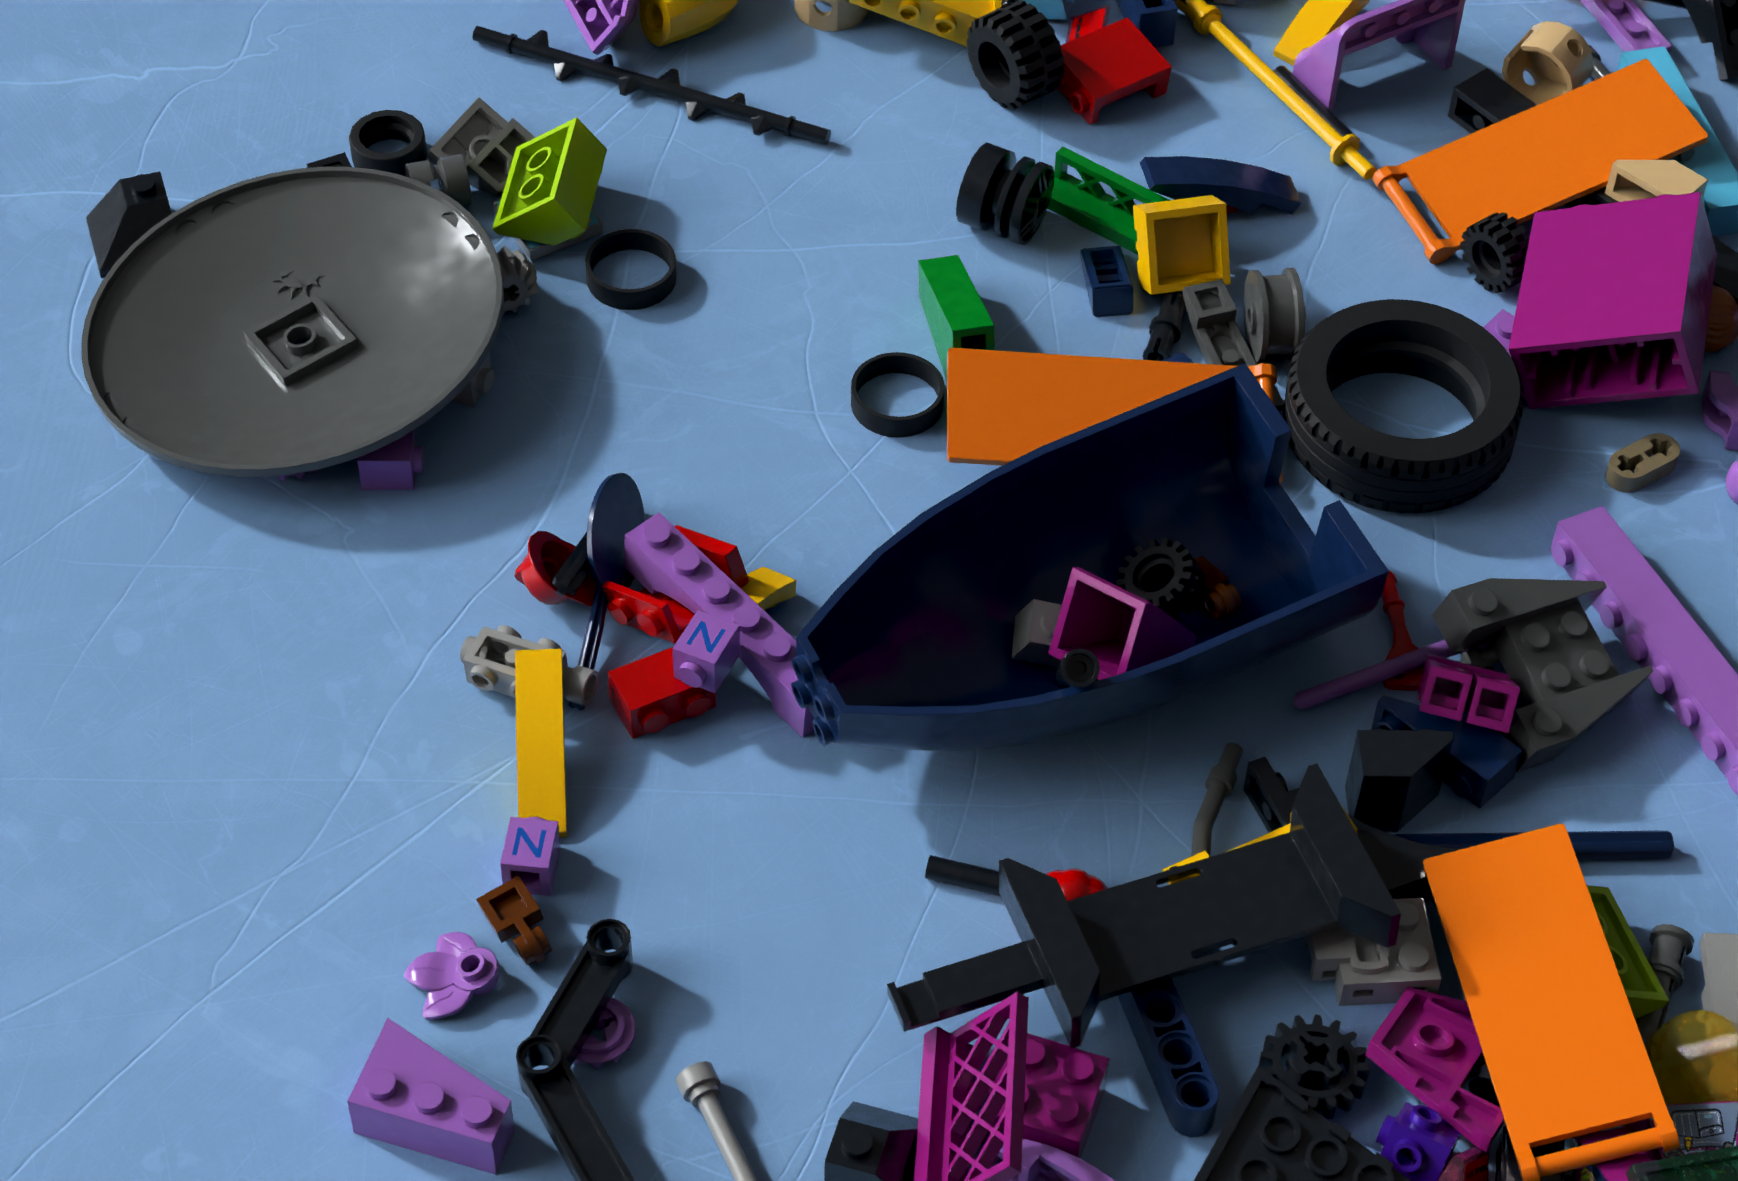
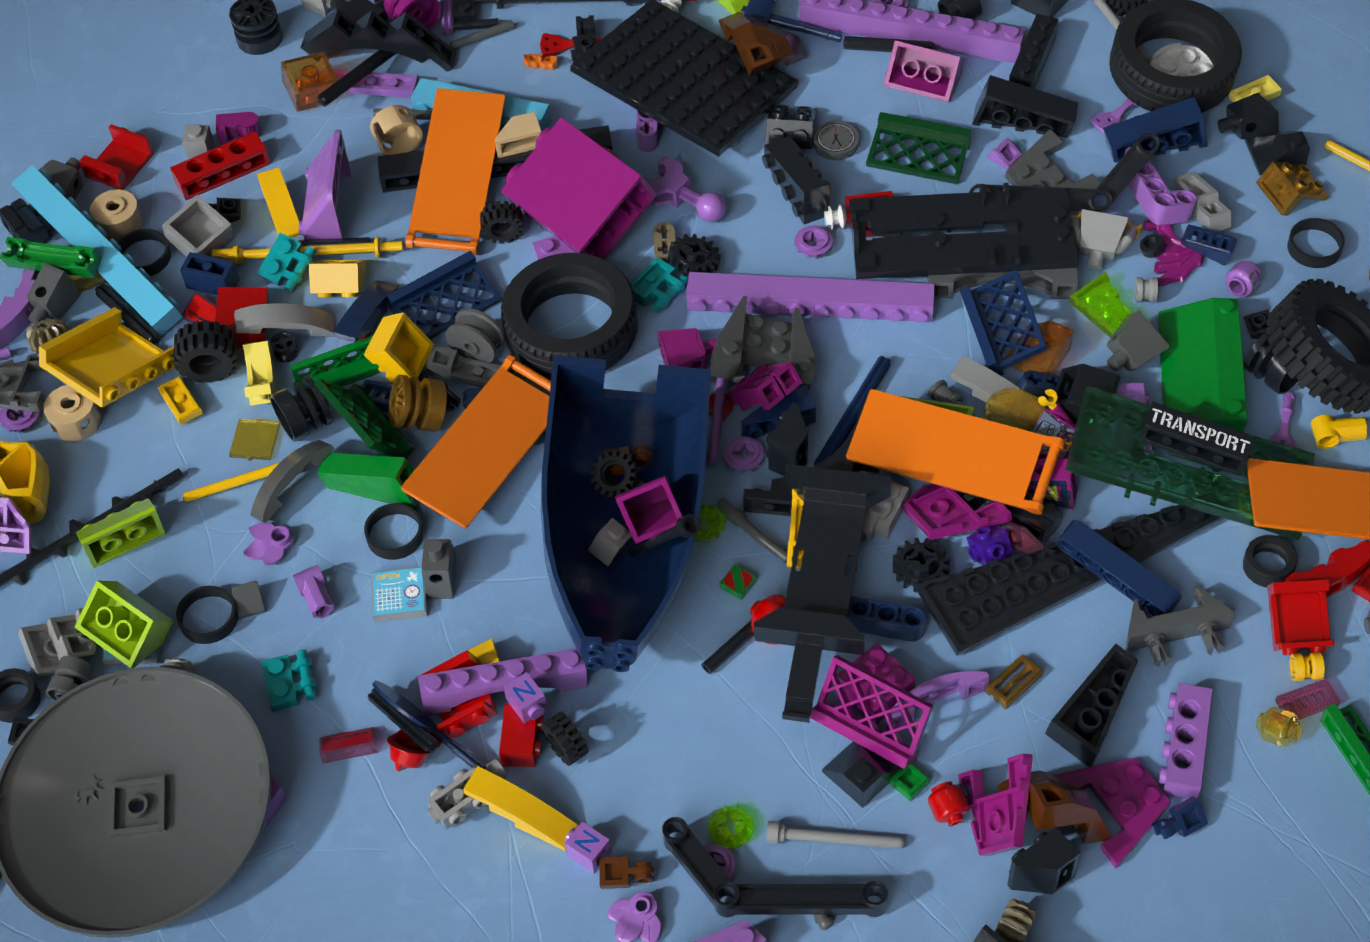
camera: 55 degrees left, 5 degrees up
(528, 507) = (348, 745): none -> slope
(581, 393) = (280, 682): none -> teal plate
(678, 1042) = (723, 835): none -> clear neon green gear
(681, 738) = (564, 738): none -> black tyre
(682, 297) = (248, 599): none -> dark grey slope
(685, 120) = (120, 532): none -> lime slope
(744, 350) = (313, 588): none -> medium lavender piece
(788, 278) = (266, 542): none -> medium lavender plate
(802, 450) = (398, 594): none -> medium azure tile
(865, 463) = (438, 559): none -> dark grey torso
(925, 237) = (229, 483): none -> yellow piece
(931, 184) = (254, 439): none -> clear yellow piece
(934, 80) = (179, 400): none -> yellow plate
(940, 237) = (266, 500): none -> dark grey slope
(1041, 131) = (259, 372): none -> light yellow arch
(1053, 280) = (366, 419): none -> dark green fence
(1102, 137) = (287, 341): none -> black wheel
(1105, 303) = (417, 403): none -> pearl gold wheel
(1108, 837) = (738, 582): none -> green tile
(1133, 101) = (284, 316): none -> light grey slope
(1179, 730) = (715, 521): none -> clear neon green gear
(1233, 62) = (280, 259): none -> teal plate
(1257, 130) = (337, 277): none -> yellow slope
(1330, 721) = (734, 449): none -> medium lavender gear
(1332, 236) = (437, 280): none -> dark blue fence
(1451, 562) = (685, 348): none -> magenta torso
(1554, 477) = (653, 279): none -> teal plate
(1645, 503) = (693, 255): none -> black gear

